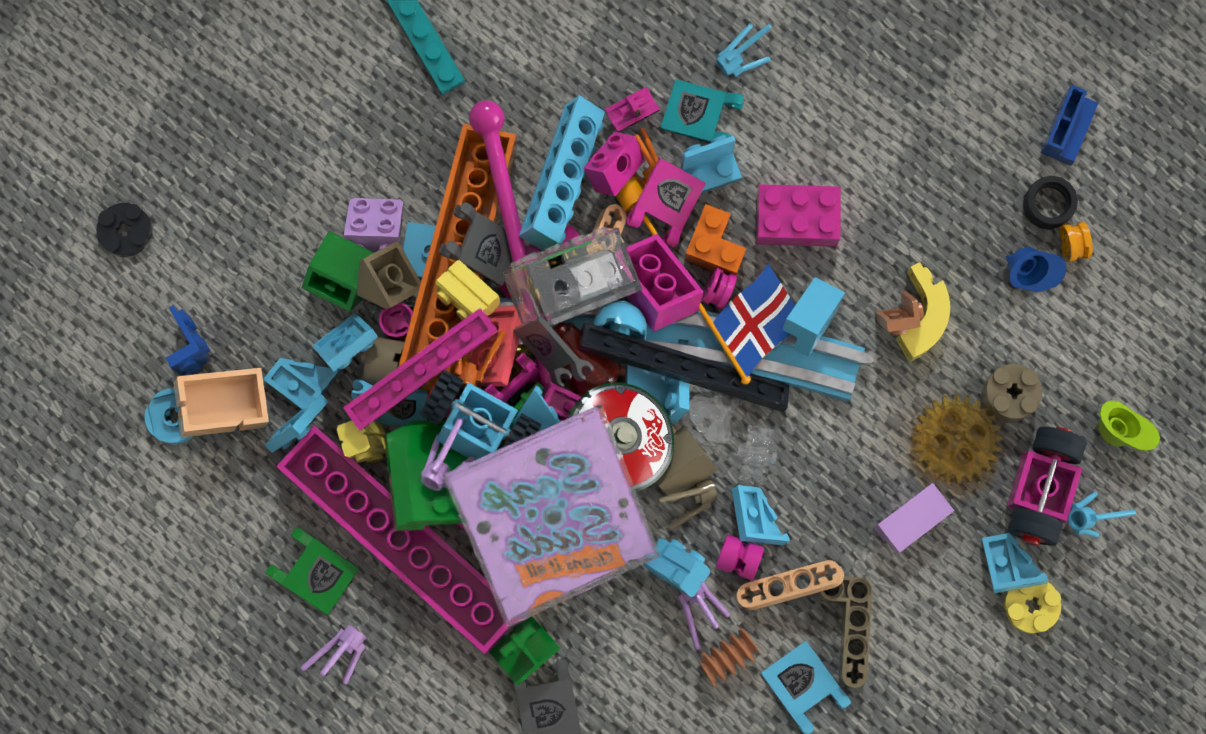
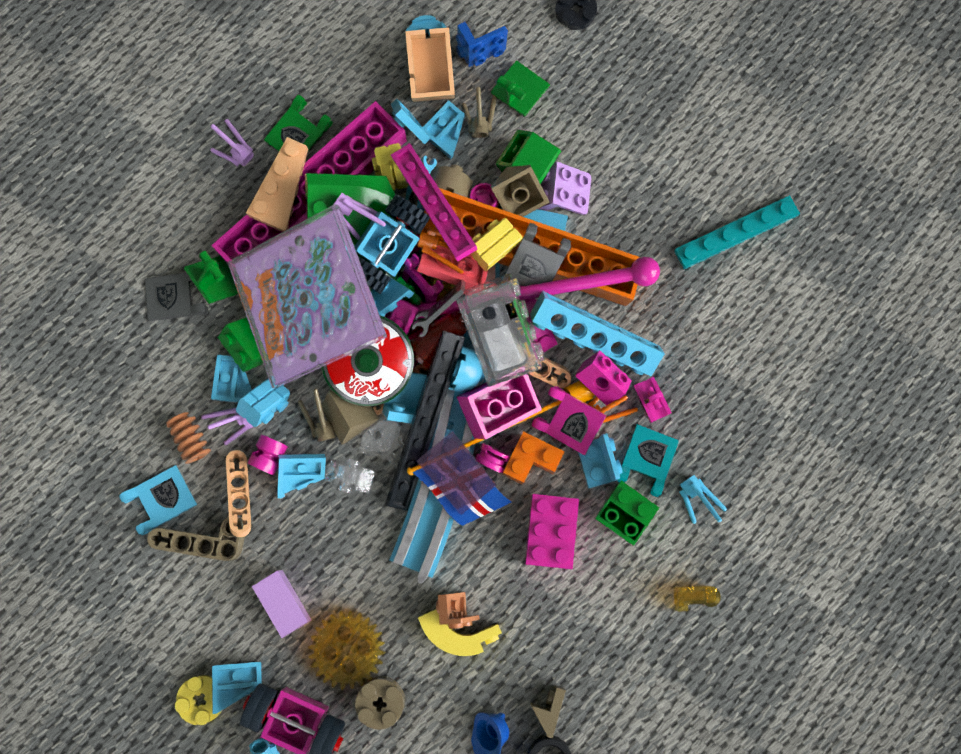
camera: 95 degrees right, 0 degrees up
(239, 292) = (520, 88): none -> green plate
(294, 337) = (480, 127): none -> dark tan plant
(345, 342) = (468, 156): medium azure plate -> none
(411, 575) = (278, 190): none -> light nougat wing
(605, 603) = (241, 344): none -> green brick
(651, 615) = (229, 380): none -> medium azure wing
(742, 326) = (456, 473): none -> clear purple plate
(768, 132) = (626, 512): none -> green slope
(813, 315) = (461, 533): medium azure piece -> none
(853, 54) = (702, 595): none -> clear yellow leg
(1003, 204) = (549, 716): none -> dark tan slope

